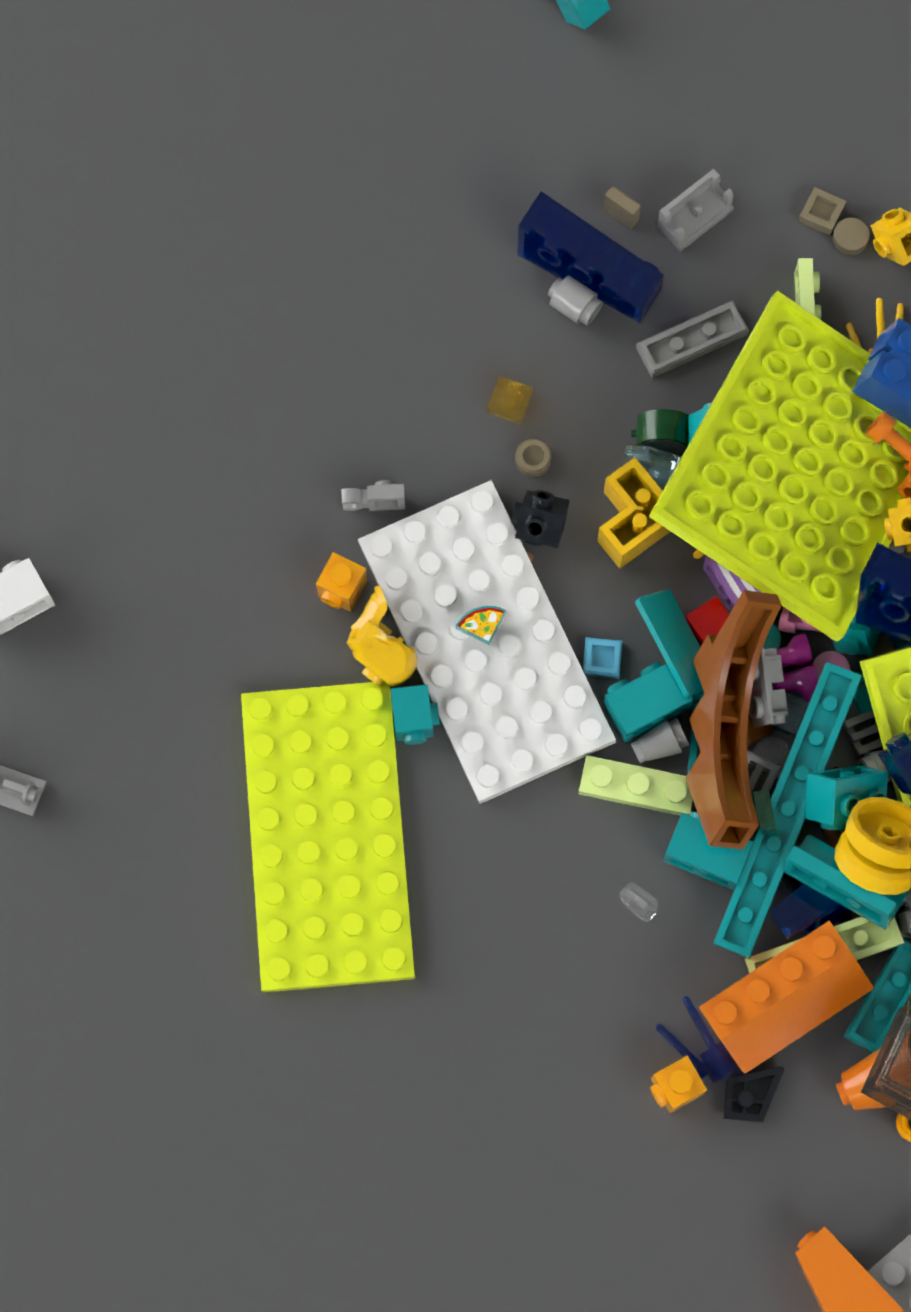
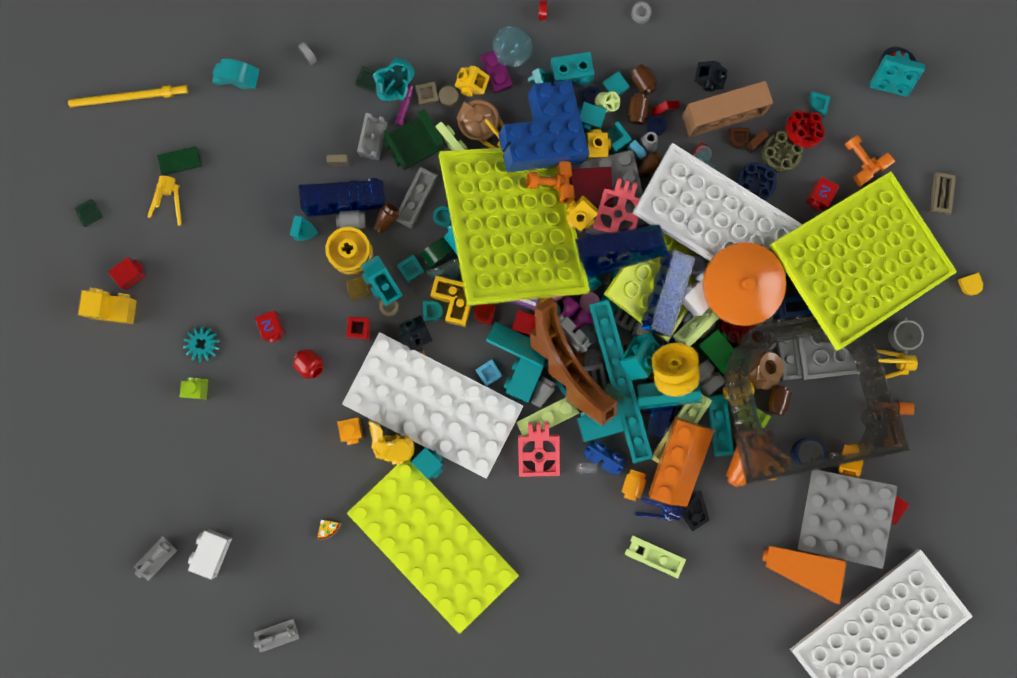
camera: 45 degrees left, 10 degrees up
(143, 166) = (101, 306): none -> yellow brick
(172, 362) = (194, 388): none -> lime brick
(196, 696) = (328, 529): none -> tile
(210, 144) = (127, 273): none -> red brick
(223, 29) = (88, 212): none -> clear green tile
(240, 321) = (209, 345): none -> teal gear
(345, 358) = (270, 327): none -> red brick
(354, 70) = (165, 187): none -> yellow plant
(356, 448) = (308, 364): none -> red head
(377, 497) = (337, 376): light grey plate -> none
(401, 51) = (179, 161): none -> dark green tile
(466, 451) = (358, 328): none -> red brick
(482, 622) = (427, 401): tile -> none
(496, 262) = (302, 229): none -> teal tile
(539, 338) = (340, 242): none -> yellow wheel
(552, 408) = (381, 280): none -> teal brick
(589, 510) = (432, 311): none -> teal tile
(603, 797) = (539, 436): none -> coral piece
(606, 429) = (410, 268): none -> teal tile
(627, 332) = (387, 215): none -> reddish brown cone
(638, 1111) = (656, 557): none -> yellowish green plate
(663, 570) = (484, 313): none -> red tile
(677, 1085) = (663, 534): light orange brick -> none
(684, 919) = (612, 462): none -> blue hinge
(689, 978) = (634, 485): none -> light orange brick
(695, 36) = (306, 51): none -> light grey tile
(706, 389) = (442, 216): none -> teal tile
(751, 260) = (414, 141): none -> dark green panel
(753, 131) = (365, 79): none -> clear green tile
(776, 203) = (404, 107): none -> magenta wheel
(789, 154) = (393, 80): none -> teal head
(856, 294) = (472, 119): none -> medium nougat piece

